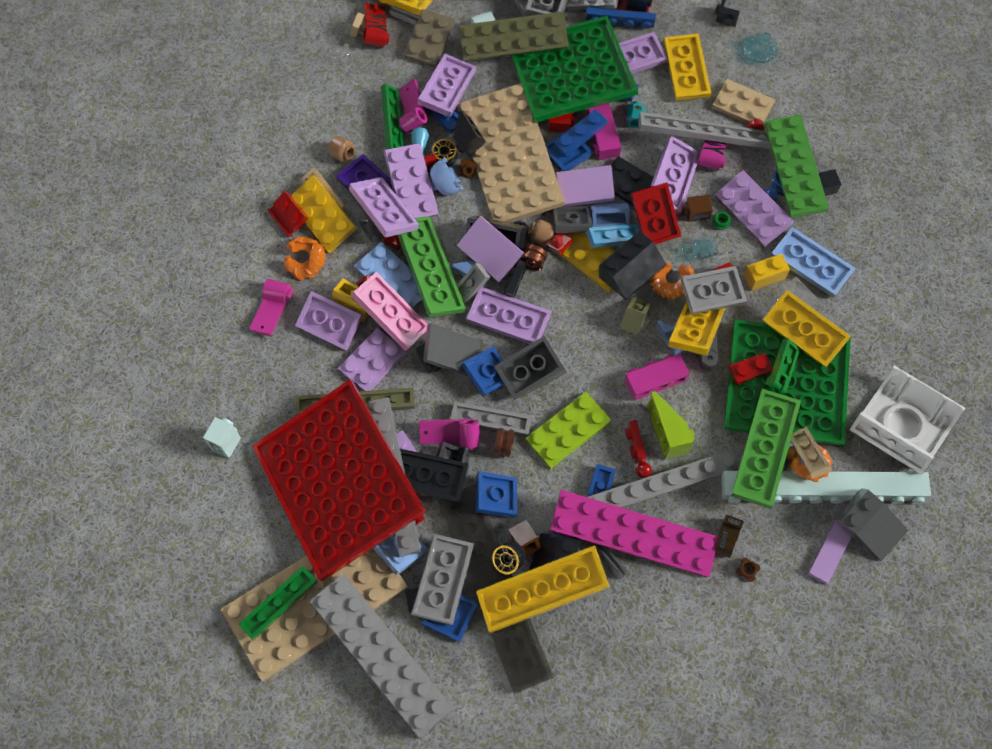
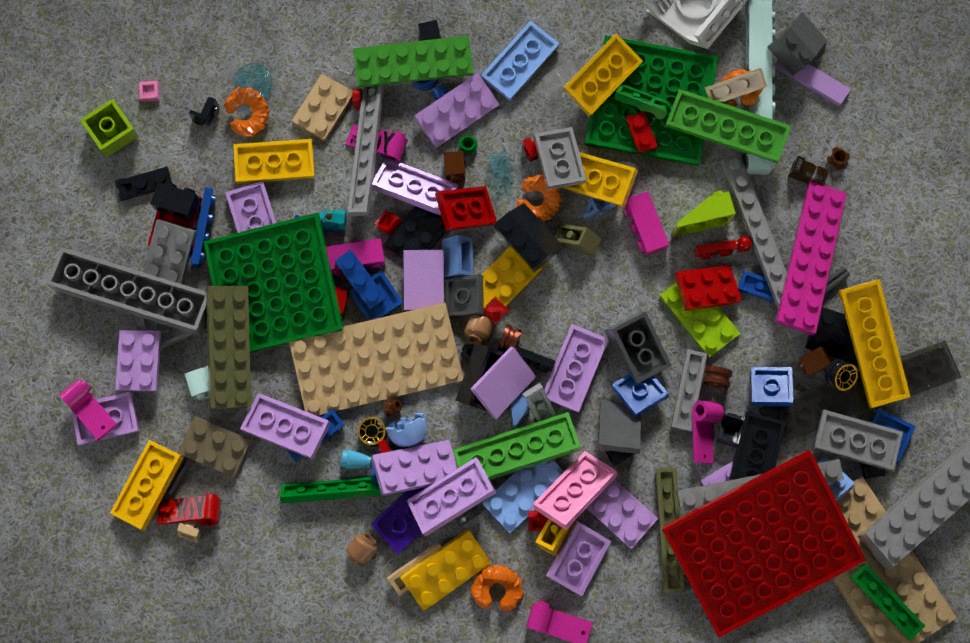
camera: 90 degrees left, 10 degrees up
(287, 214) = (444, 608): red plate -> none
(414, 113) = (300, 468): dark pink door -> none
(467, 135) = (357, 403): black slope -> none
(595, 433) = (707, 287): none -> red plate
(611, 235) = (487, 253): dark azure plate -> none
(638, 157) = (387, 222): none -> red tile
(735, 52) = (259, 111): none -> orange piece
(766, 272) = (533, 106): yellow brick -> none

